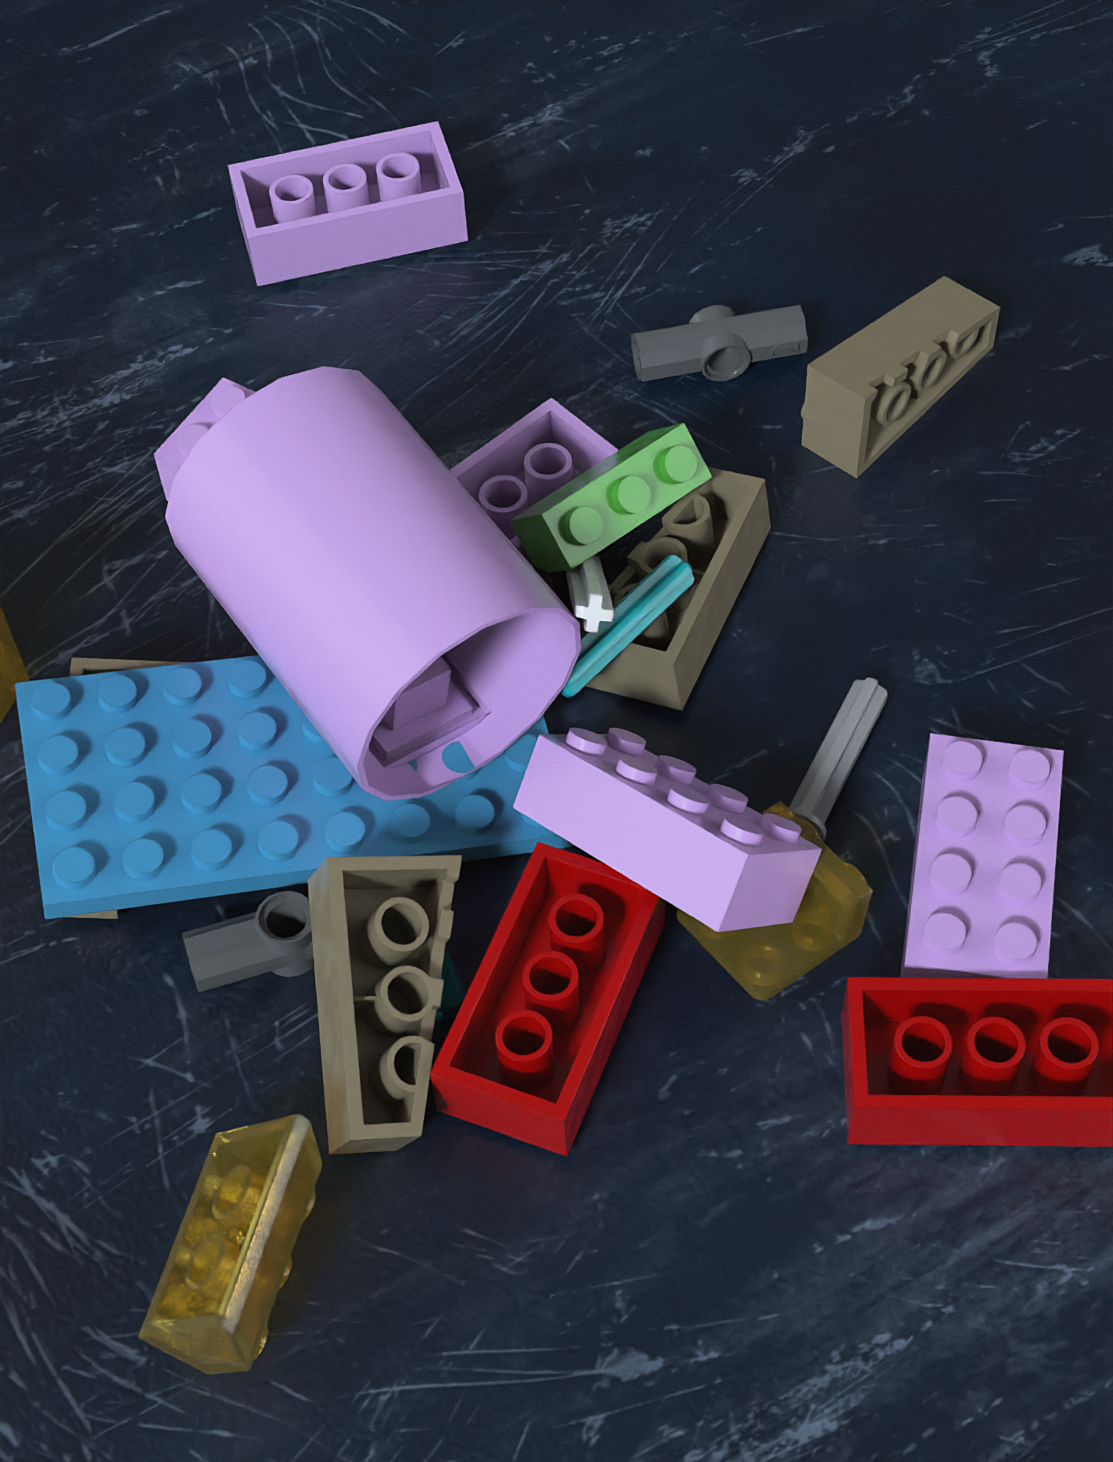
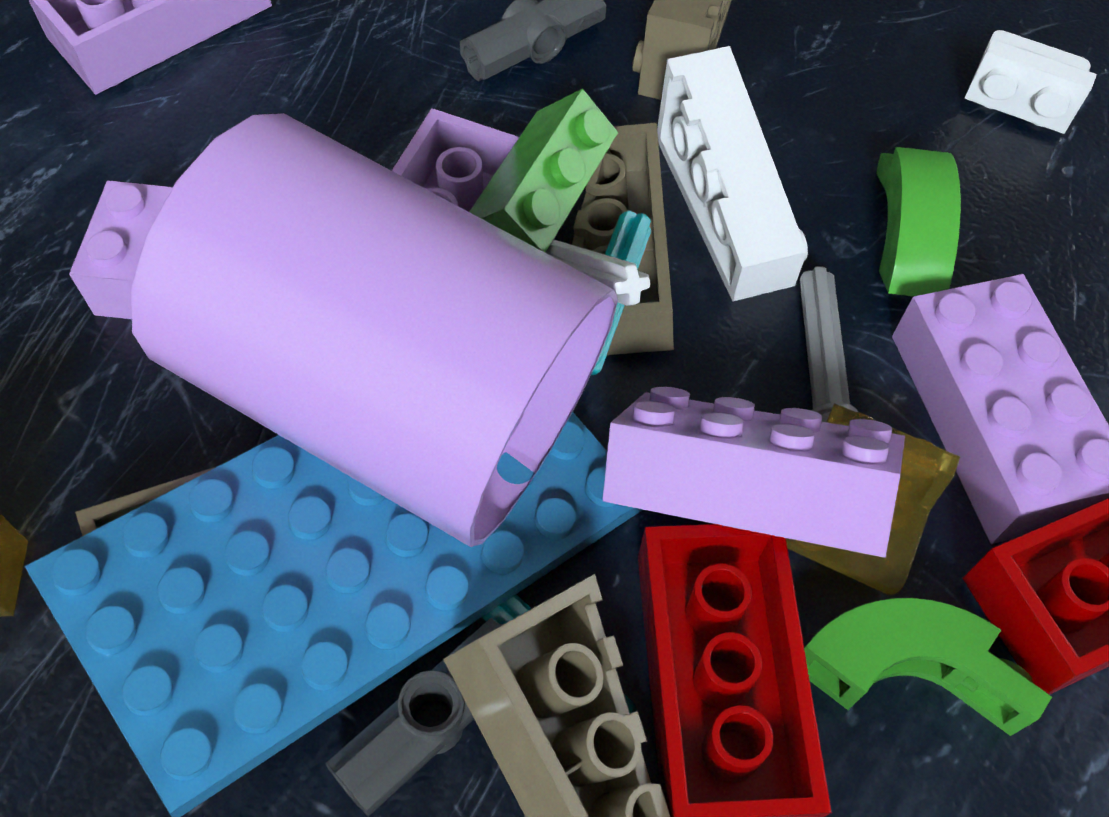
camera: 30 degrees left, 5 degrees up
(744, 1038) = (928, 643): none -> bright green arch
(827, 557) = (728, 174): none -> white wedge
(1002, 662) = (921, 220): none -> bright green arch

